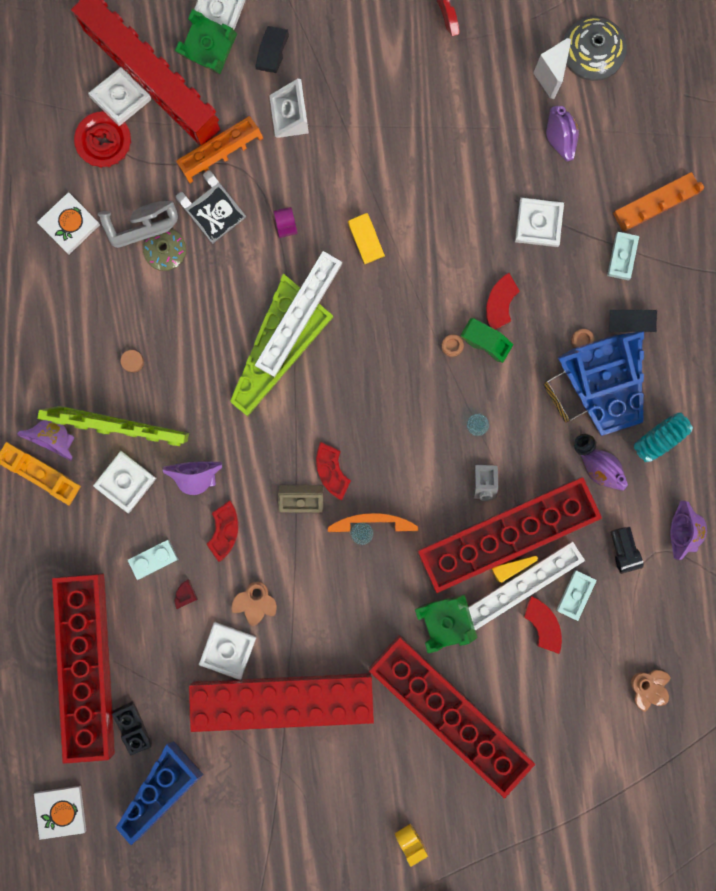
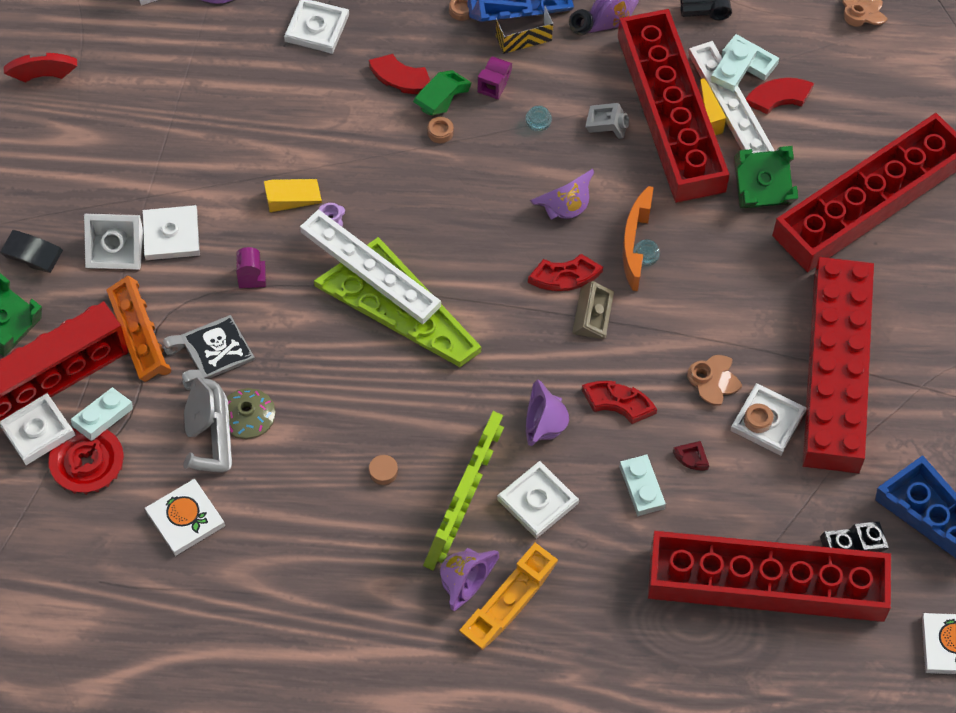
camera: 80 degrees left, 25 degrees down
(139, 140) = (101, 414): none -> light aqua plate
(221, 643) = (758, 418): none -> nougat tile
(312, 152) = (171, 232): none -> white plate
(354, 269) = (334, 210): none -> lavender plate
(399, 461) = (567, 200): none -> medium lavender hat
(512, 381) = (496, 74): none -> magenta leg
(559, 582) = (733, 65): none -> light aqua plate

